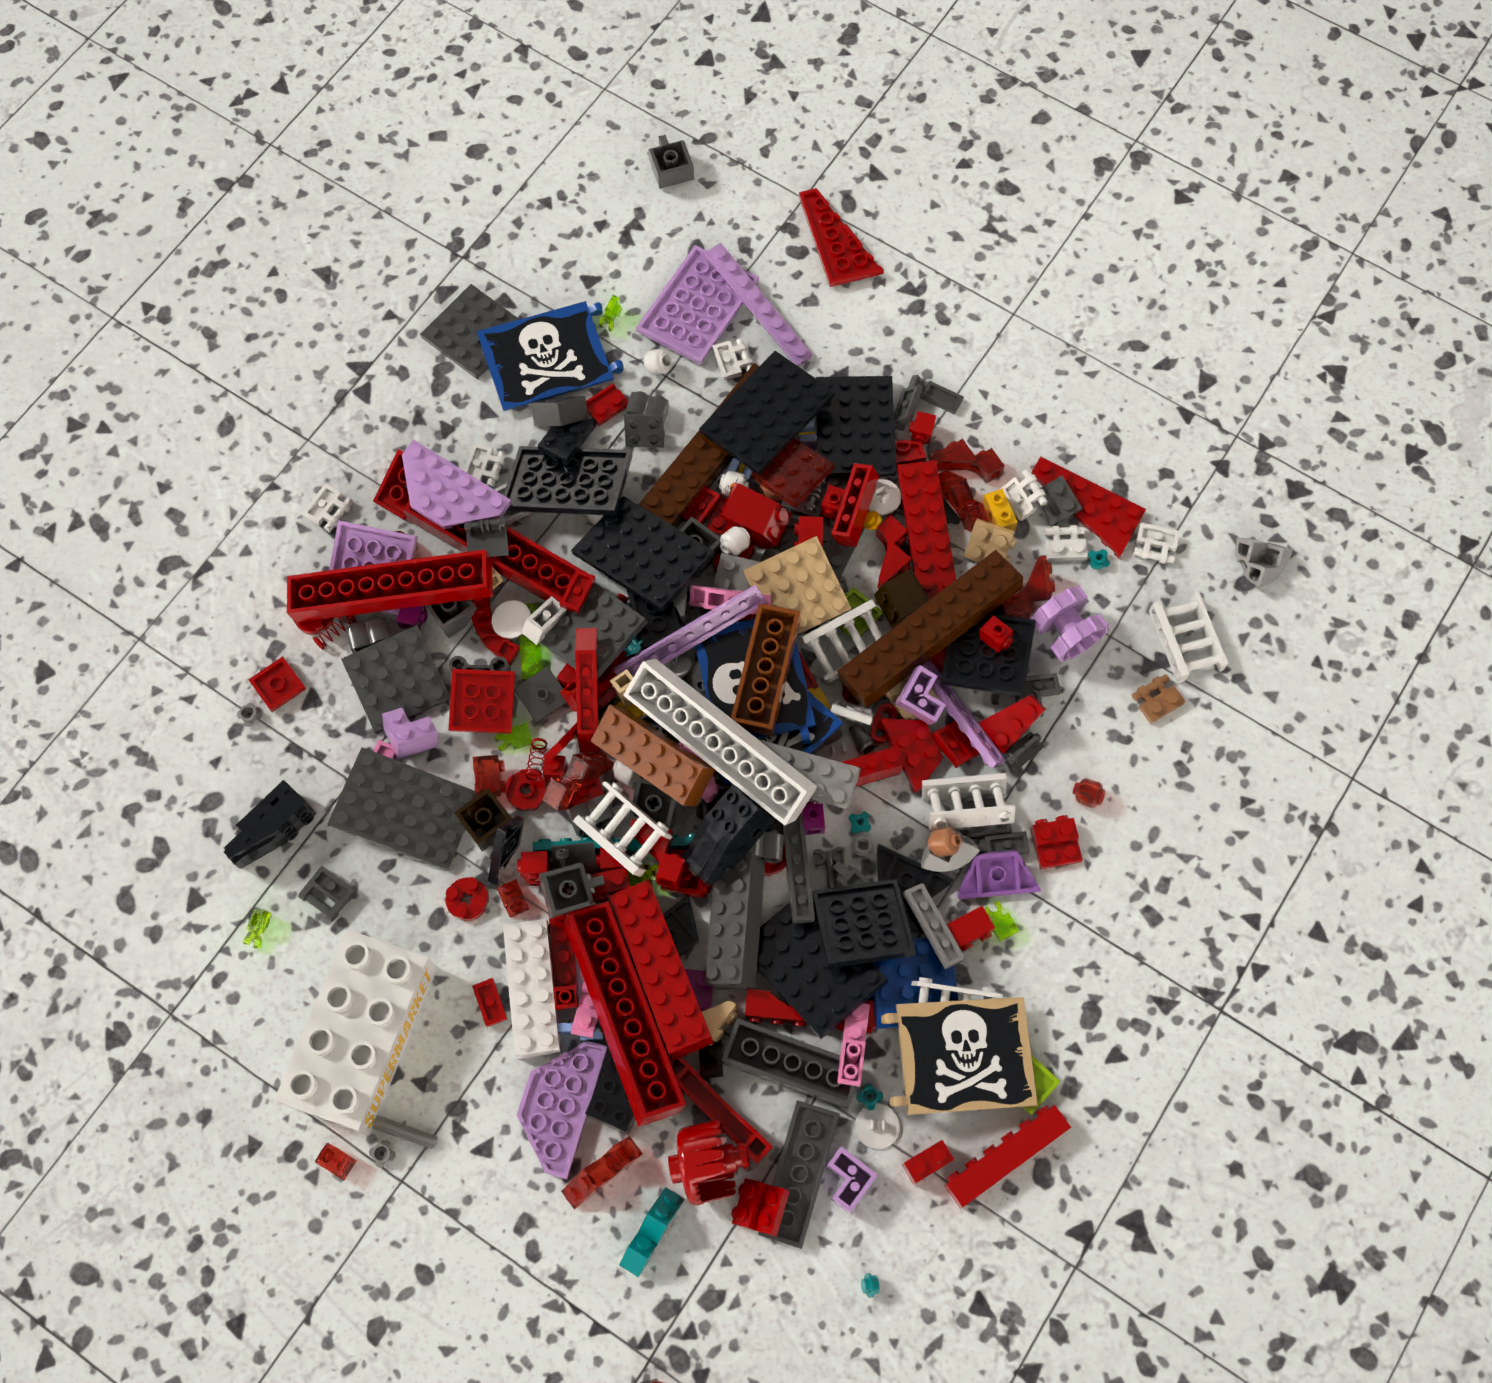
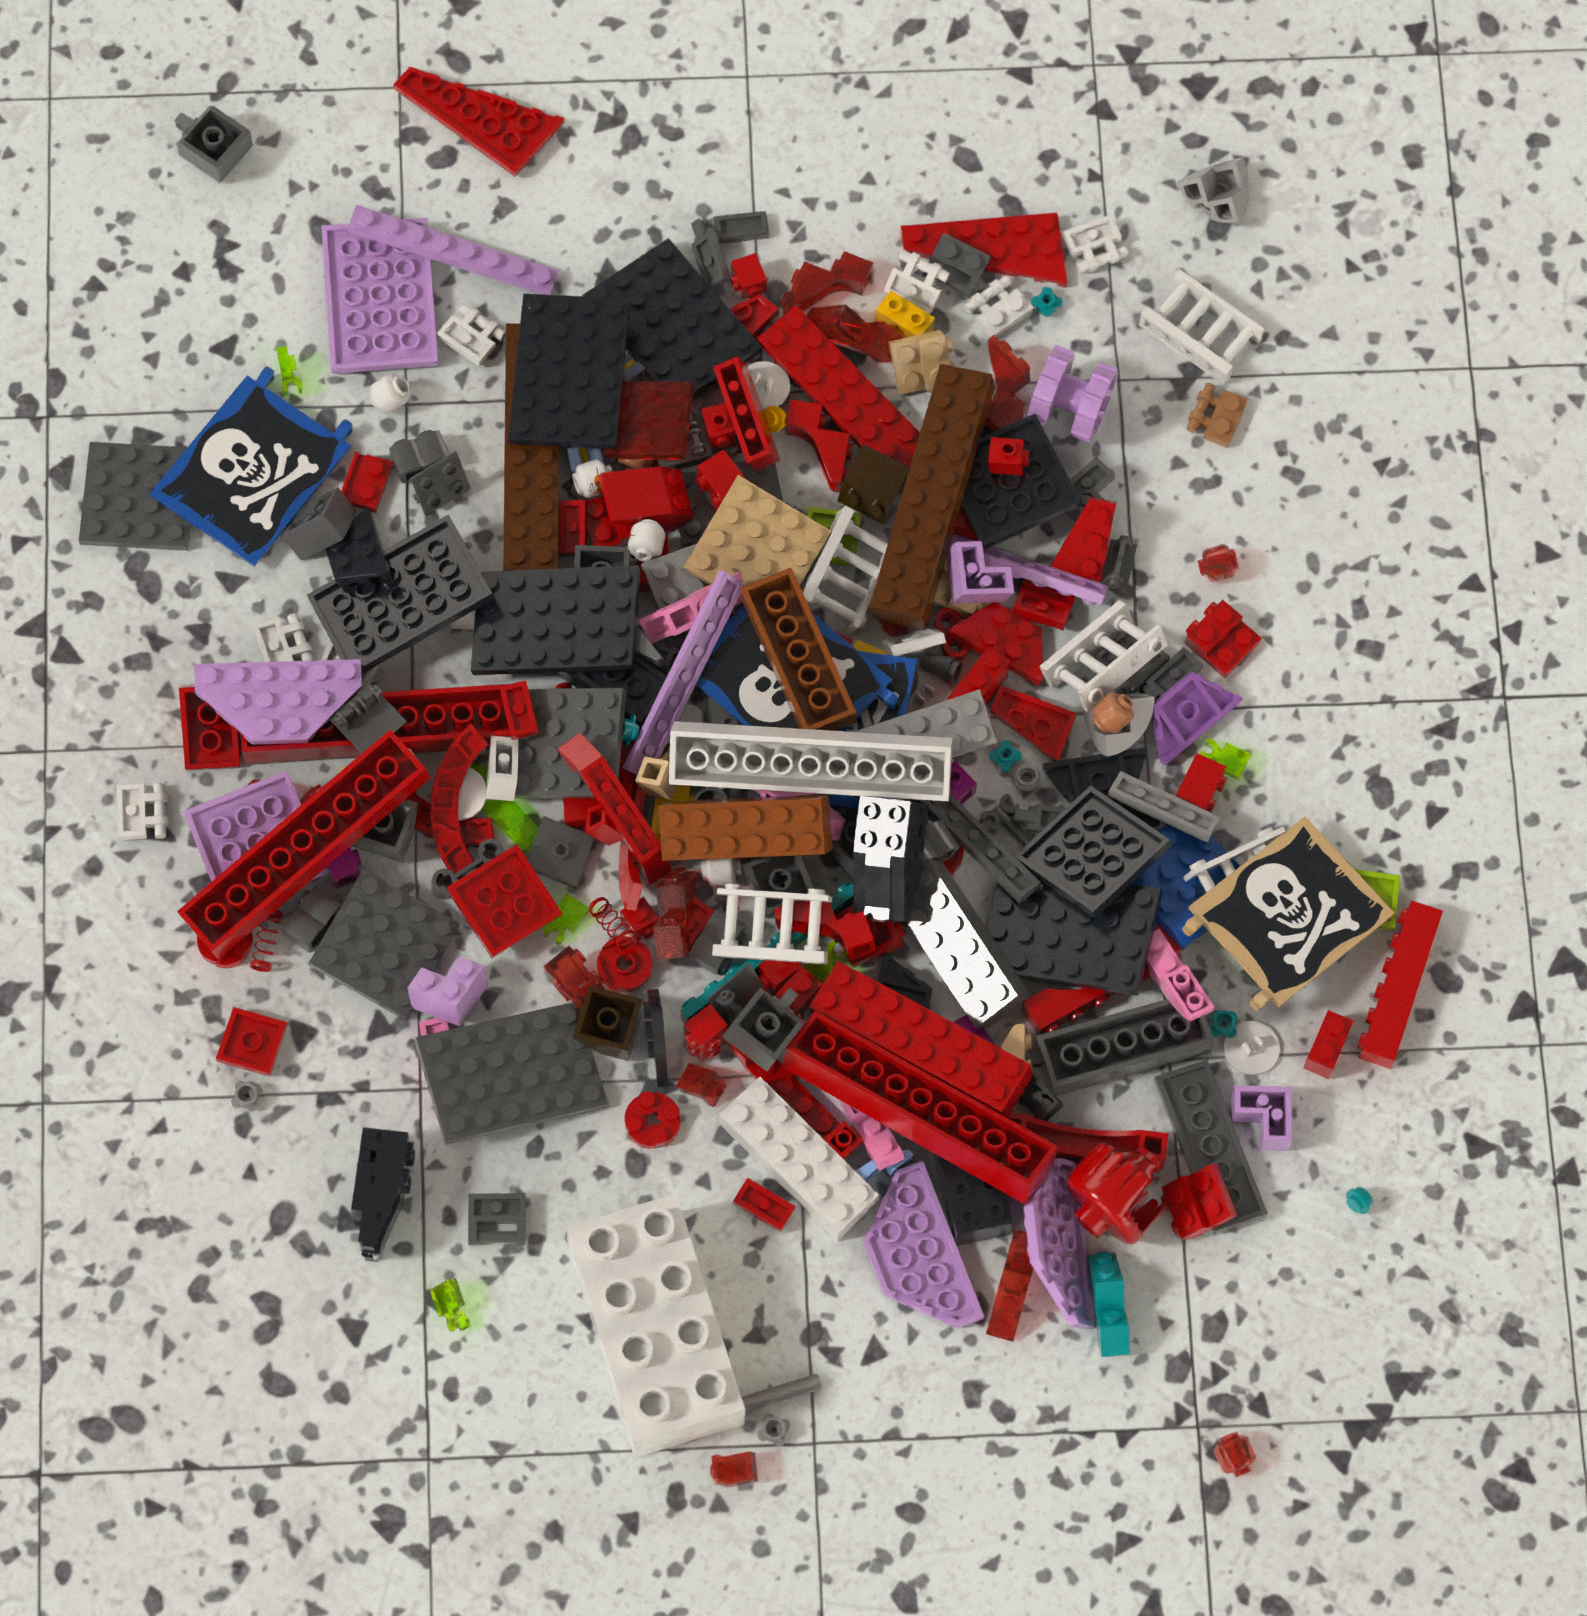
camera: 40 degrees left, 0 degrees up
(498, 617) = (446, 795): none -> red tile
(644, 1169) = (1059, 1246): none -> lavender plate
(895, 813) = (1034, 720): none -> red wing

